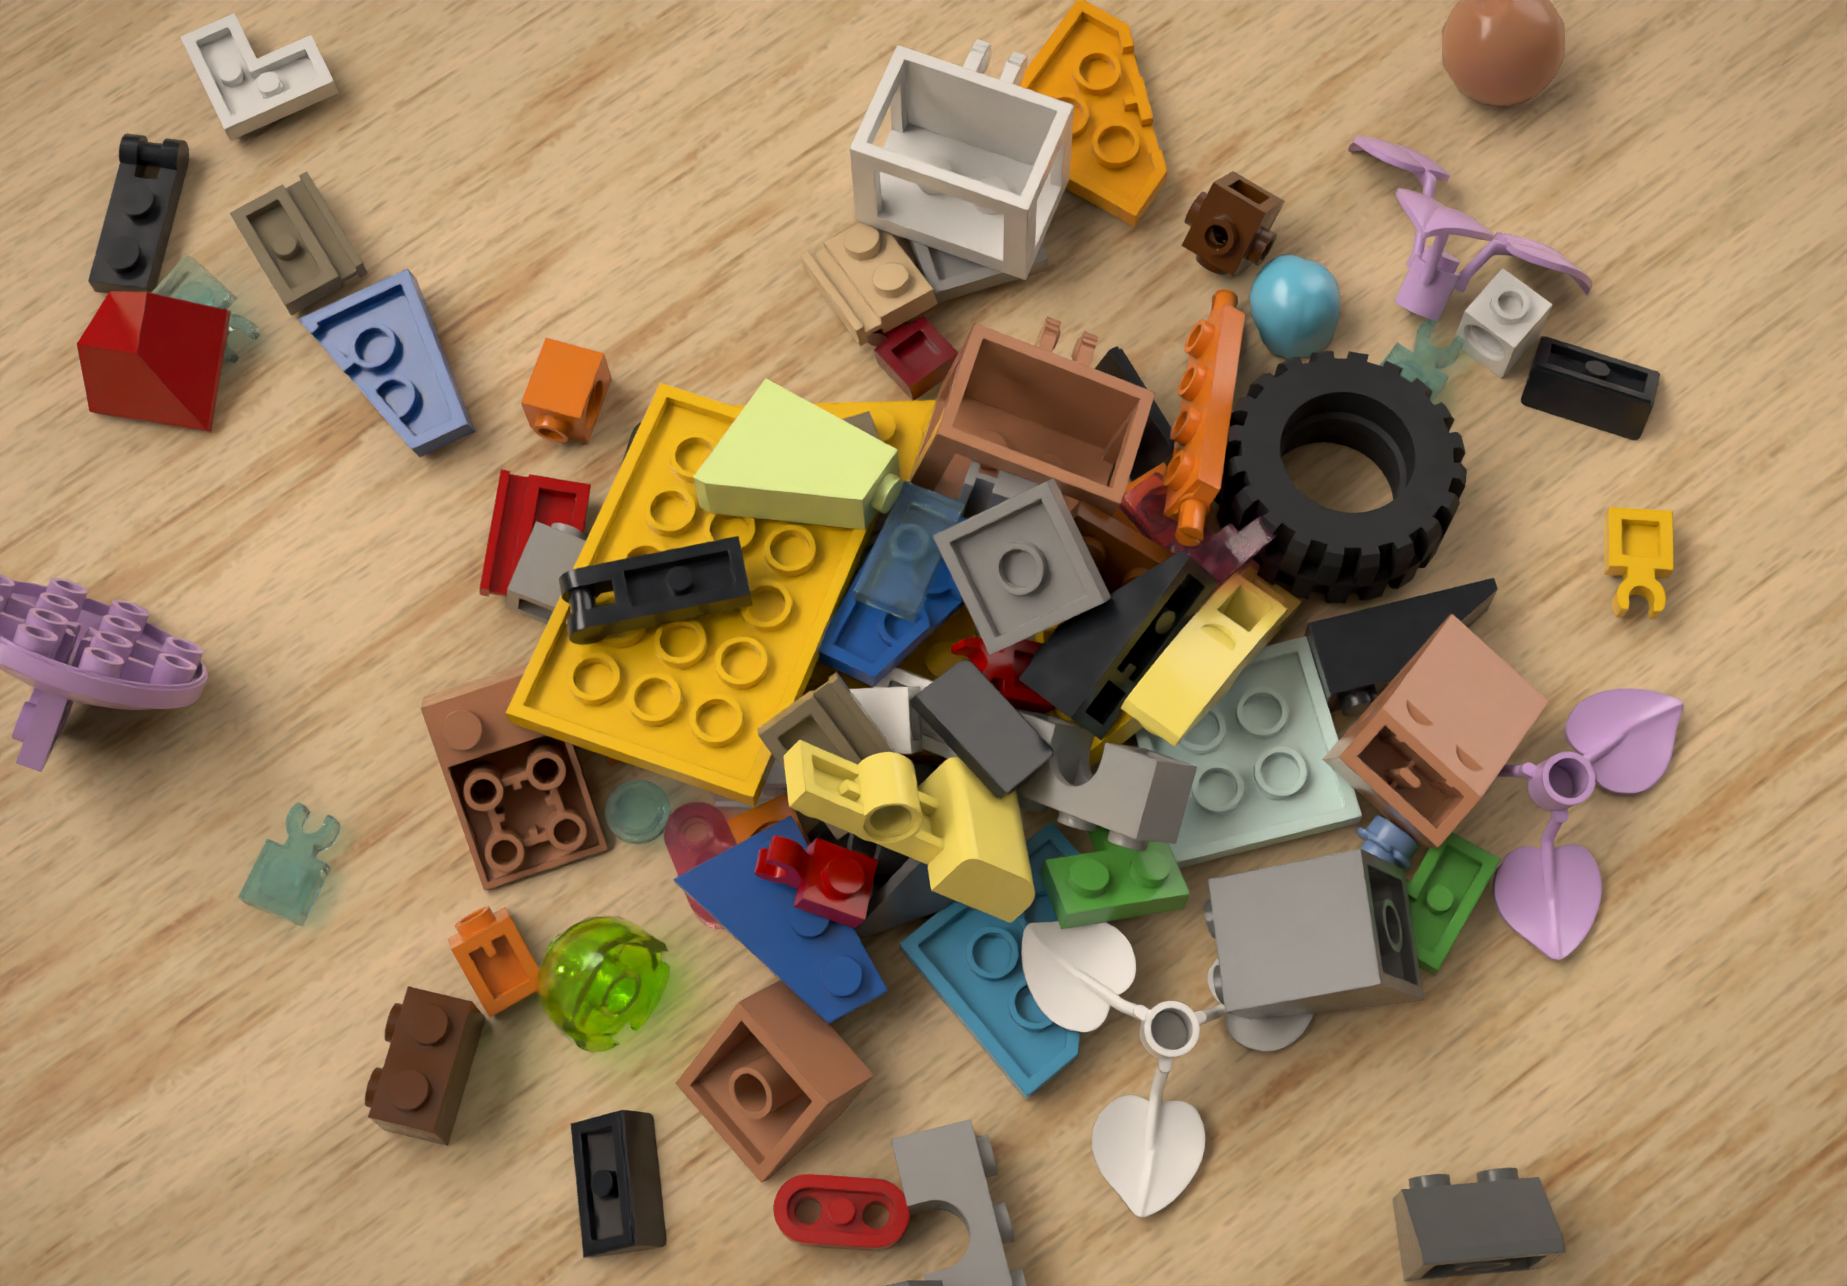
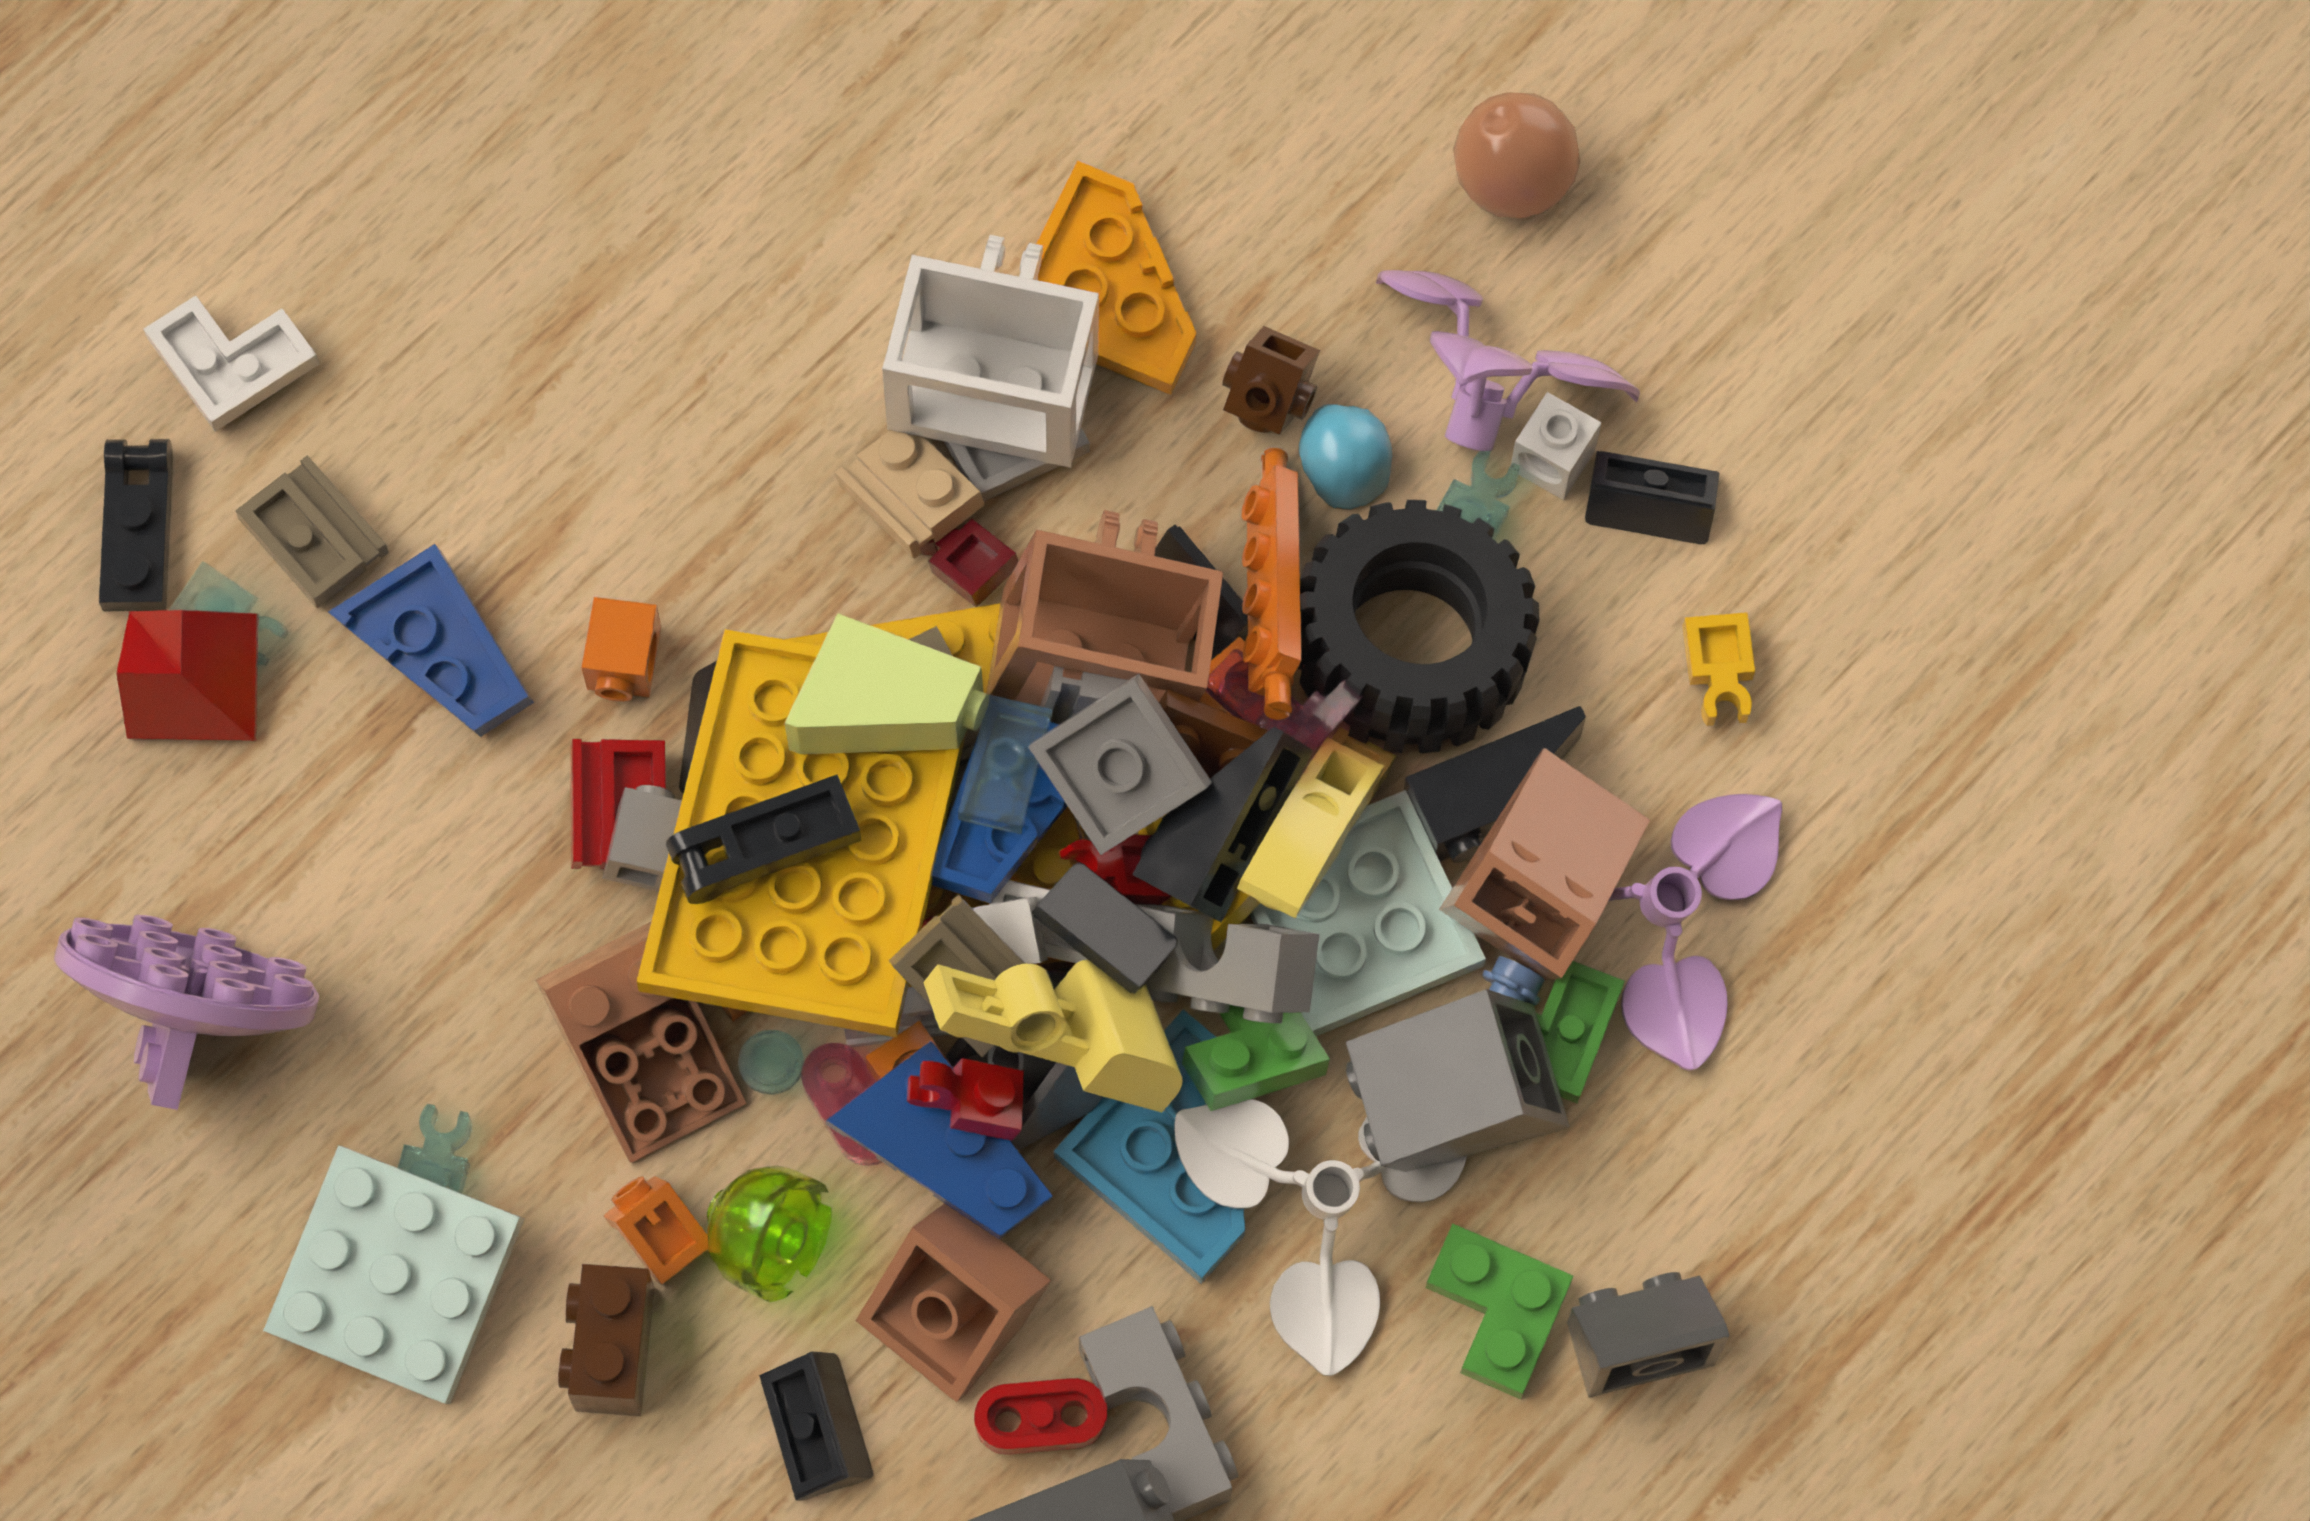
camera: 15 degrees left, 0 degrees up
(230, 967) = (394, 1274): none -> light aqua plate
(1345, 1169) = (1513, 1293): none -> bright green plate

